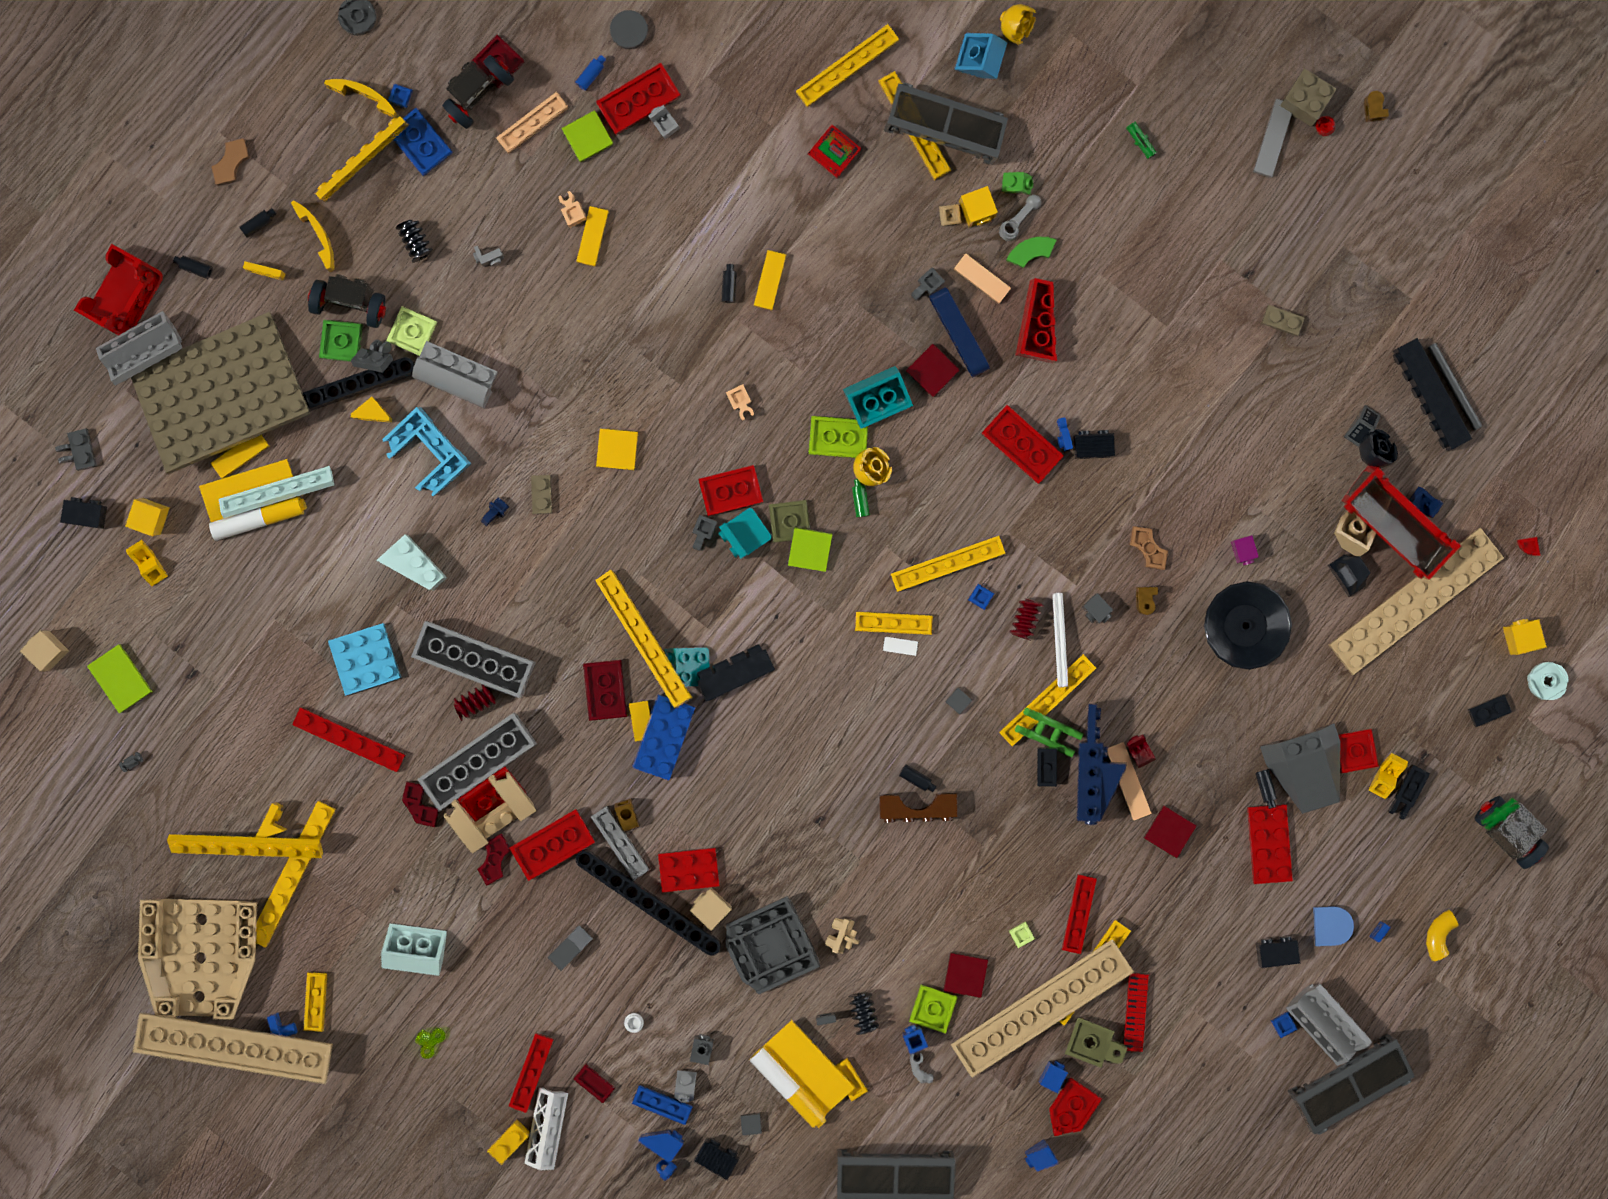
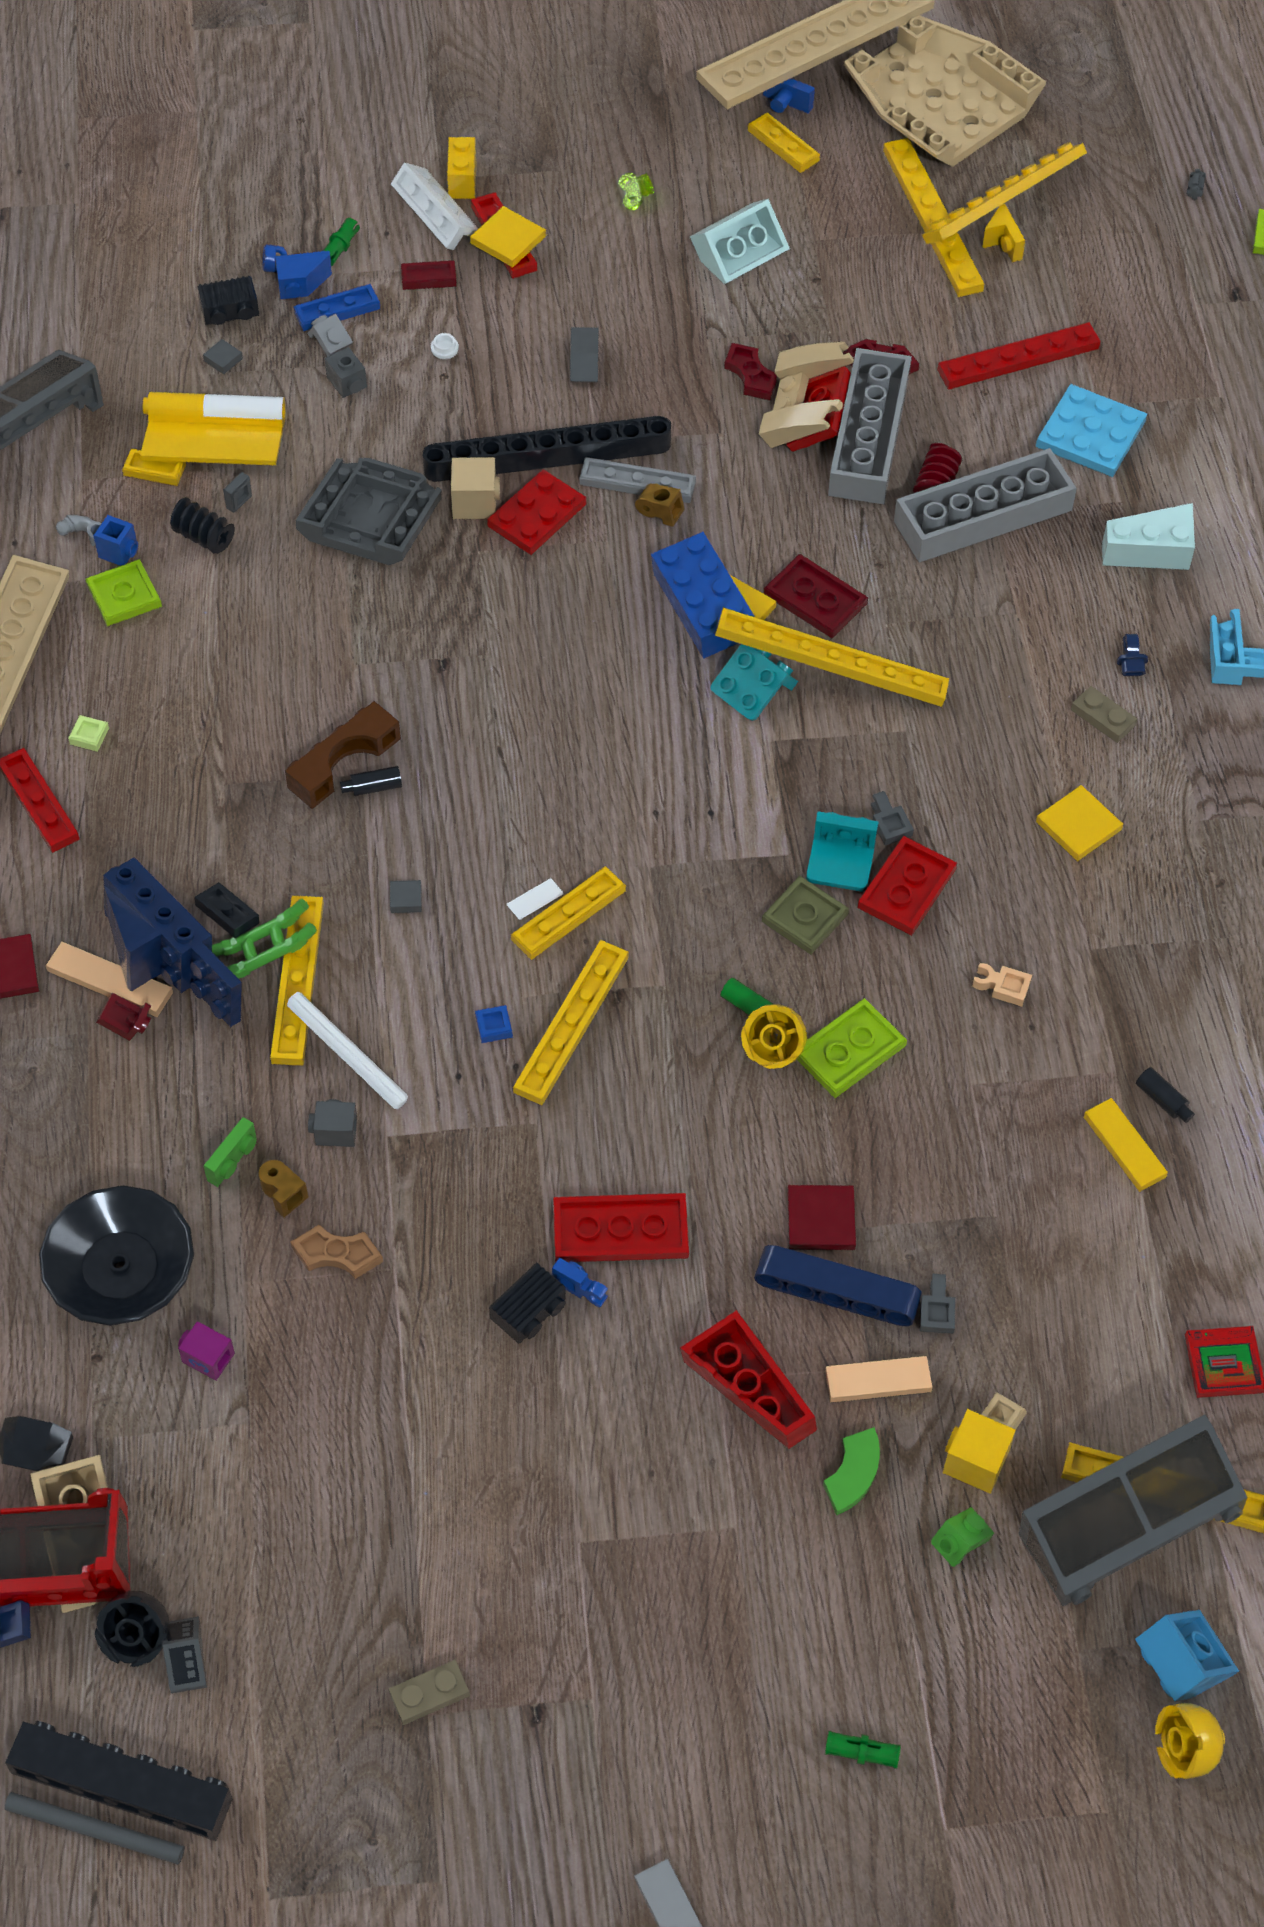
camera: 140 degrees right, 30 degrees down
(534, 1064) = (508, 236): none -> yellow tile
(552, 844) = (706, 423): red plate -> none
(619, 1150) = (341, 239): none -> green pin
(730, 677) = (690, 717): black windscreen -> none
(810, 549) = (750, 900): lime tile -> none
(845, 937) = (296, 575): tan hips -> none
(878, 397) = (854, 1121): teal slope -> none
(965, 975) = (117, 648): dark red tile -> none
(1026, 618) = (413, 1039): dark red piece -> none
(1032, 203) = (916, 1534): light grey piece -> none
(1145, 637) = (225, 1158): none -> bright green plate

